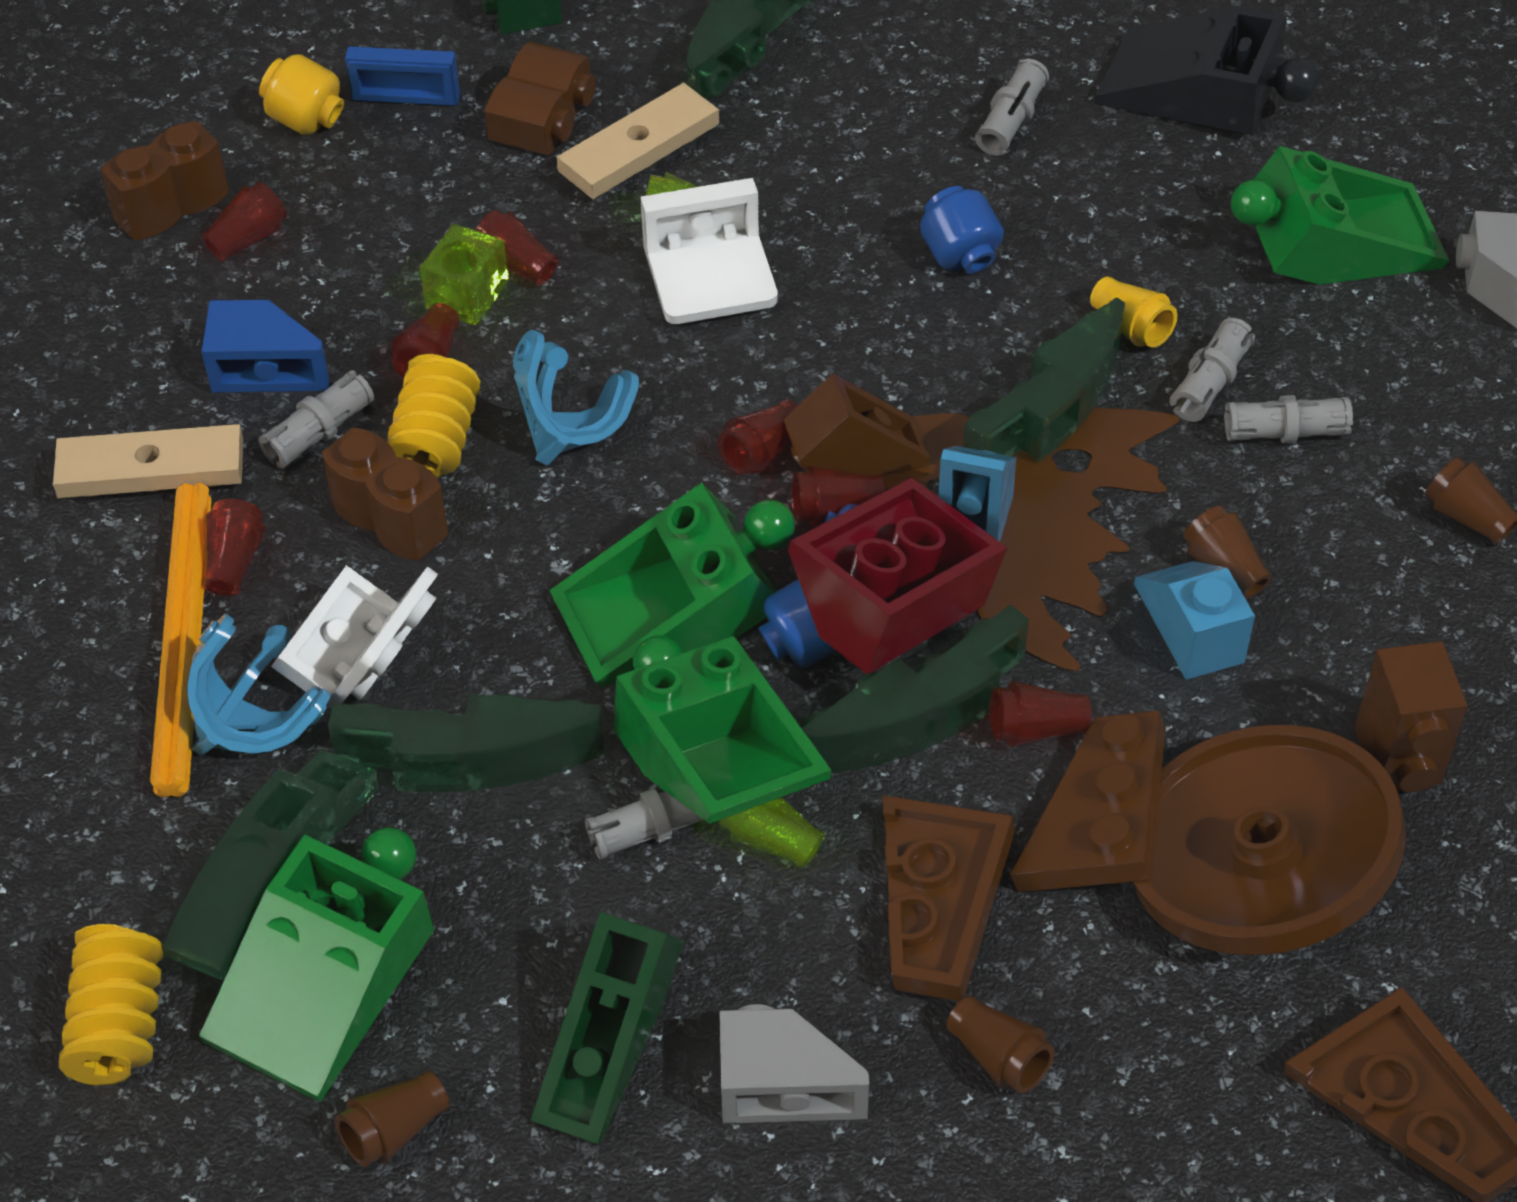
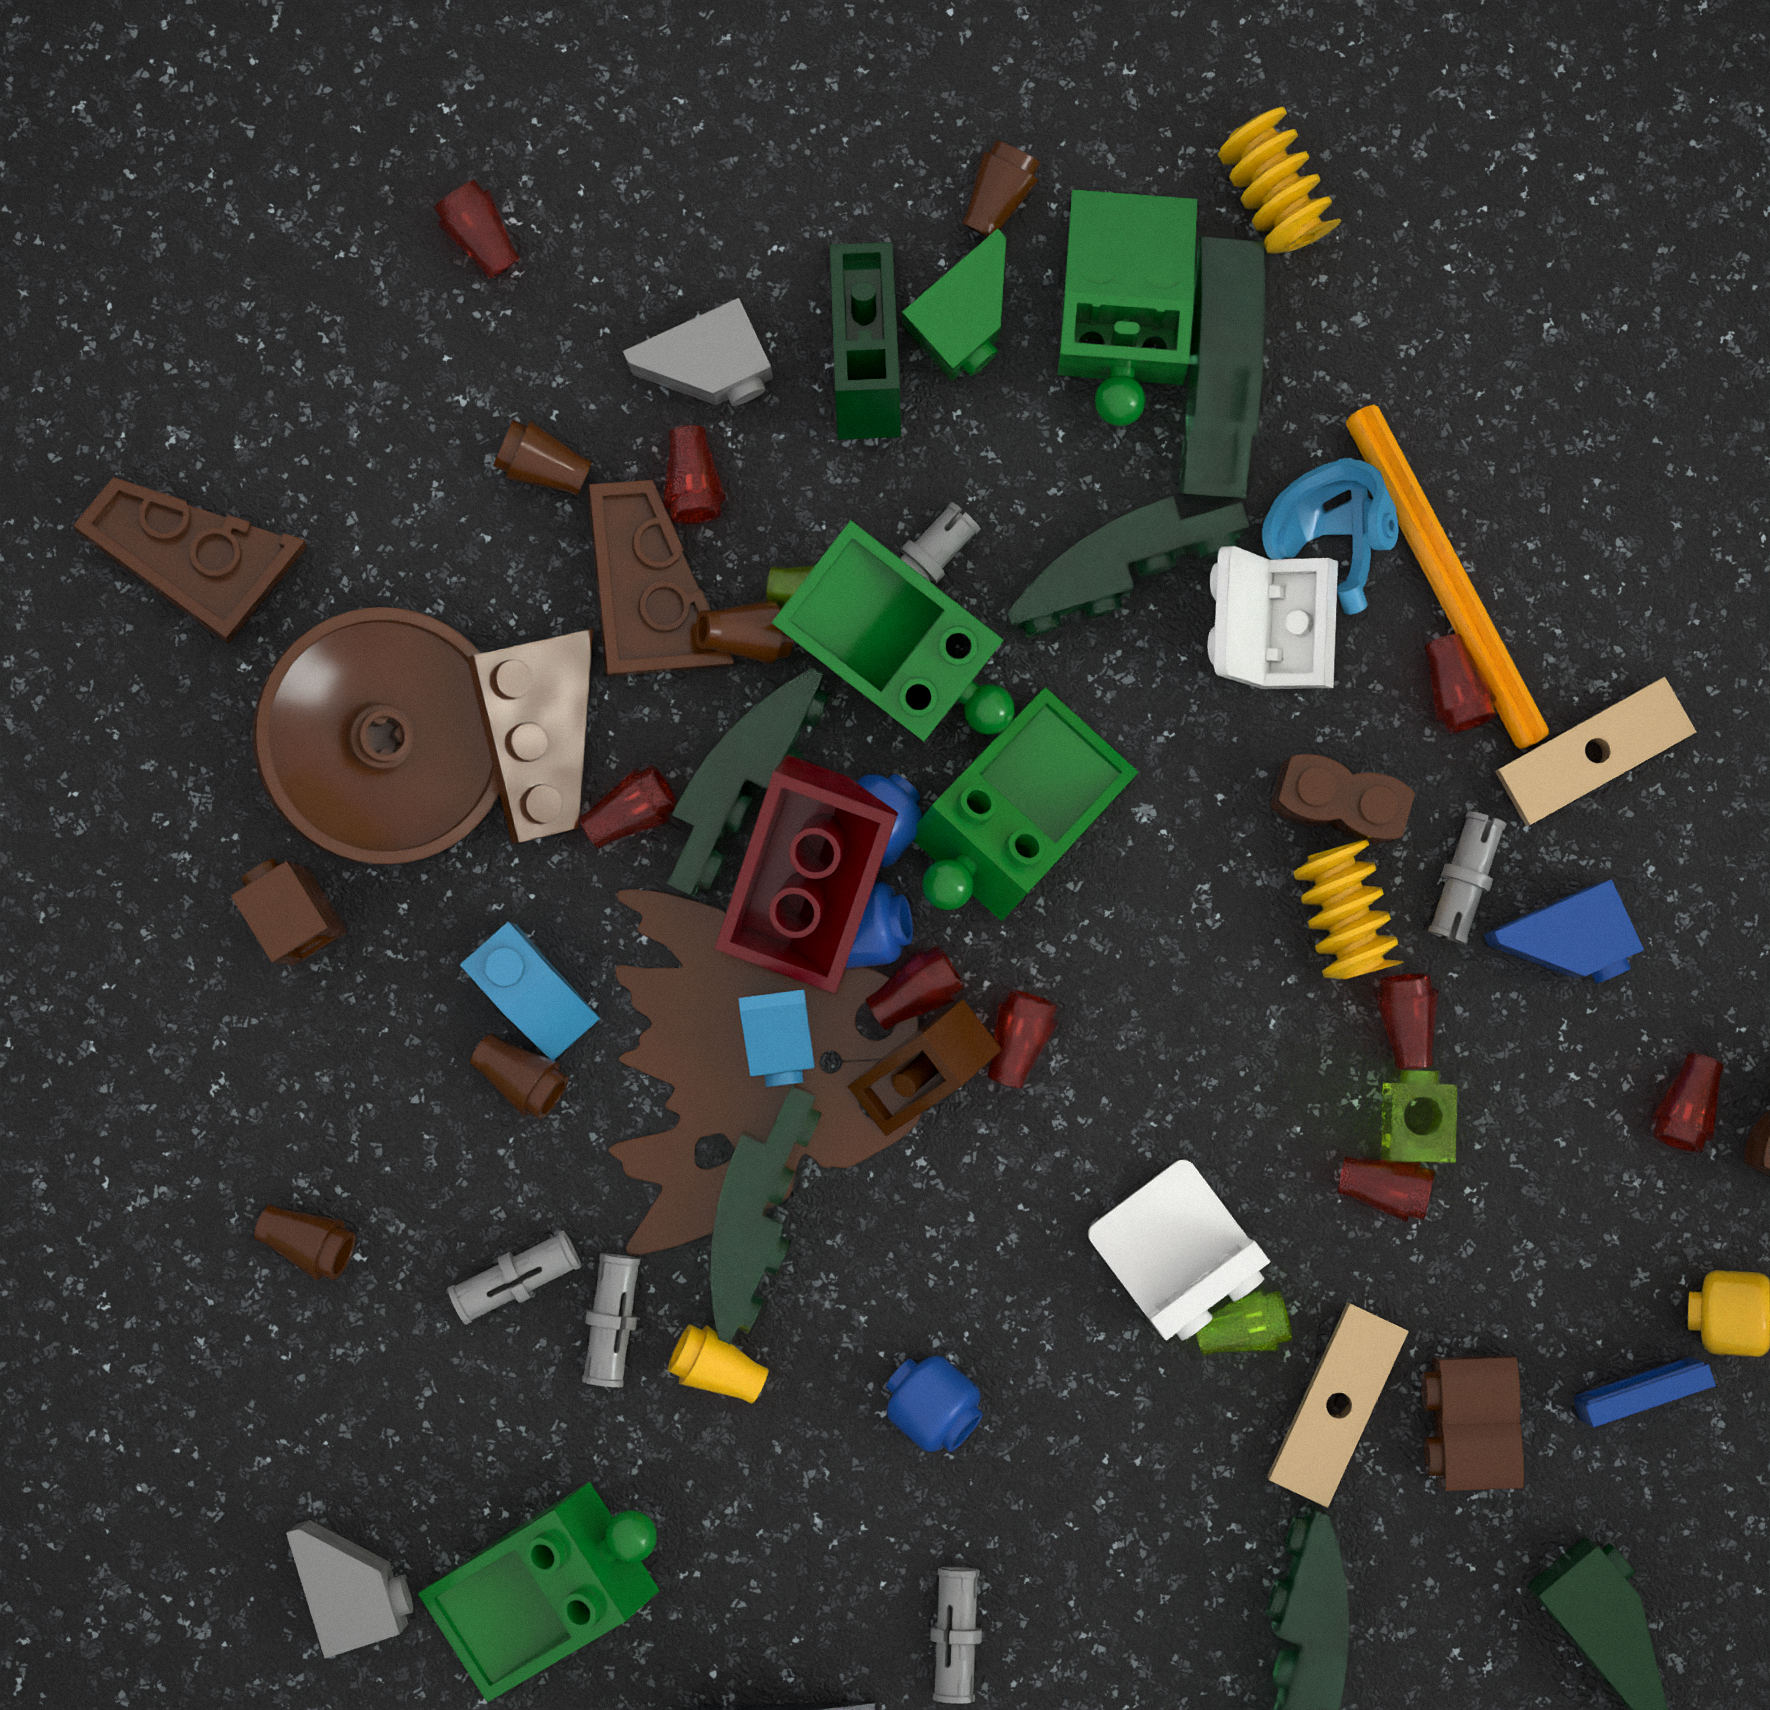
camera: 155 degrees right, 35 degrees up
(490, 1013) = (962, 311): none -> green slope
(563, 431) = (1191, 1000): dark azure helmet -> none
(849, 966) = (692, 481): none -> clear red cone
(856, 806) = (744, 632): none -> reddish brown cone

